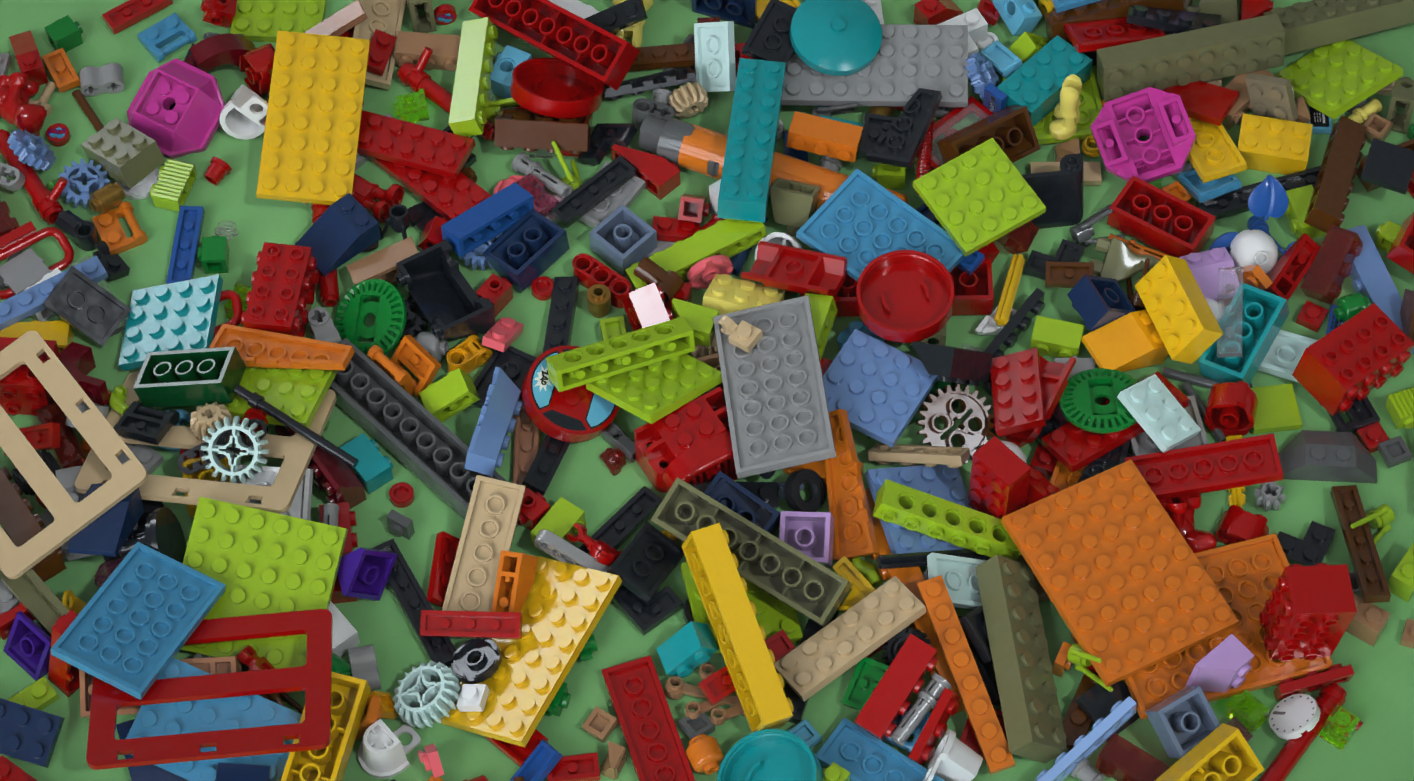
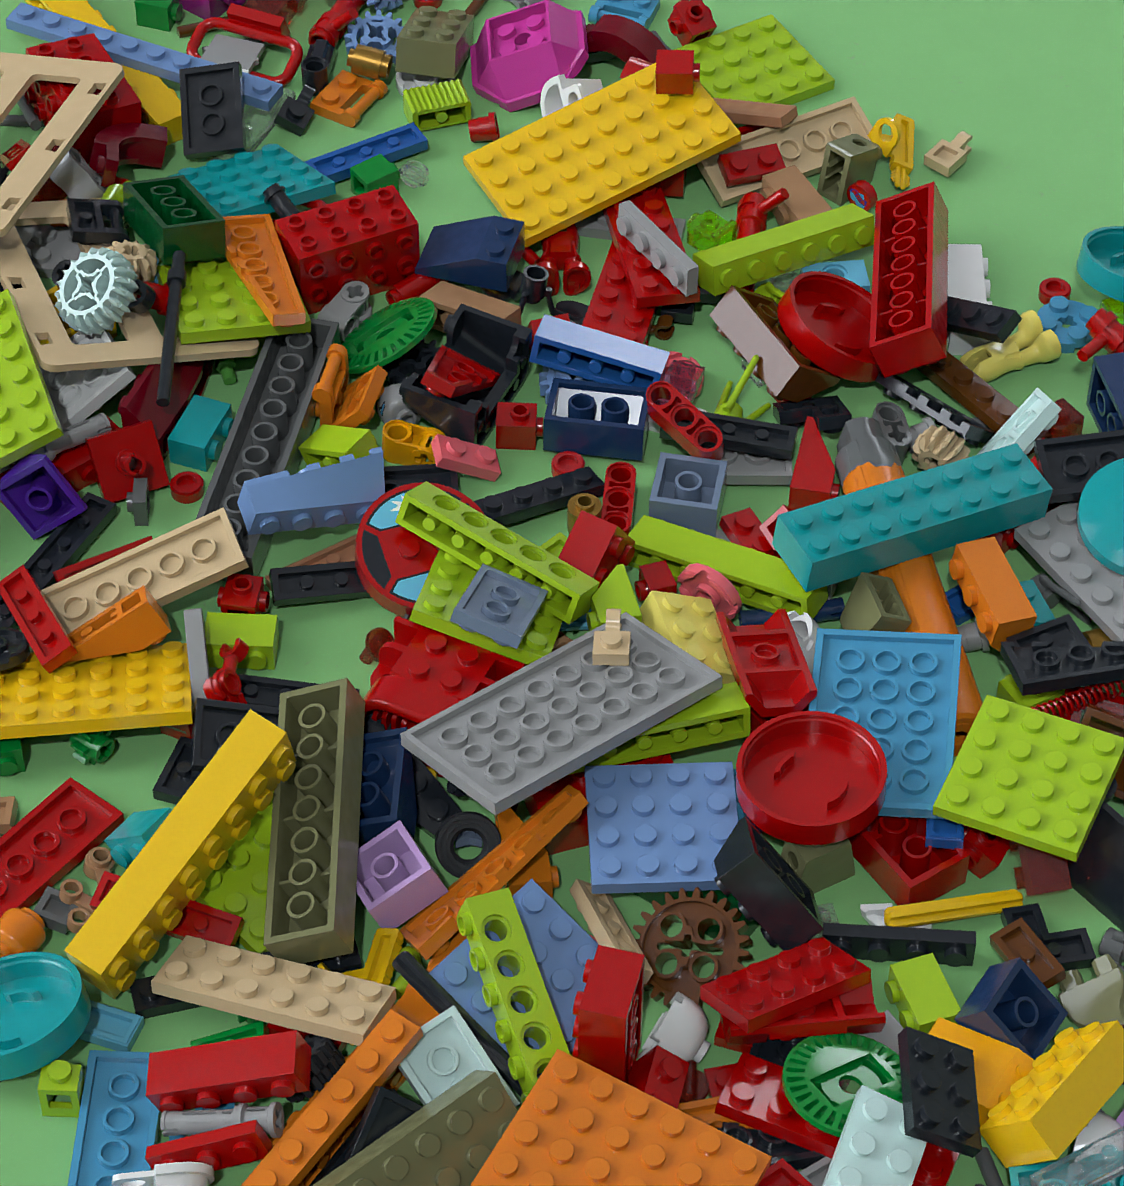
camera: 55 degrees right, 10 degrees down
(223, 312) = (280, 202): none -> black pin
(303, 39) = (676, 72): none -> red brick
(367, 513) = (126, 455): none -> red tile
(429, 137) = (657, 248): none -> light grey plate
(448, 299) = (456, 374): none -> red wing
(535, 168) = (716, 375): light grey pin -> none
(589, 200) = (680, 409): none -> red beam
(651, 272) = (647, 550): reddish brown piece -> none
(677, 372) = (499, 606): none -> sand blue plate
(1142, 361) = (939, 1092): none -> black plate

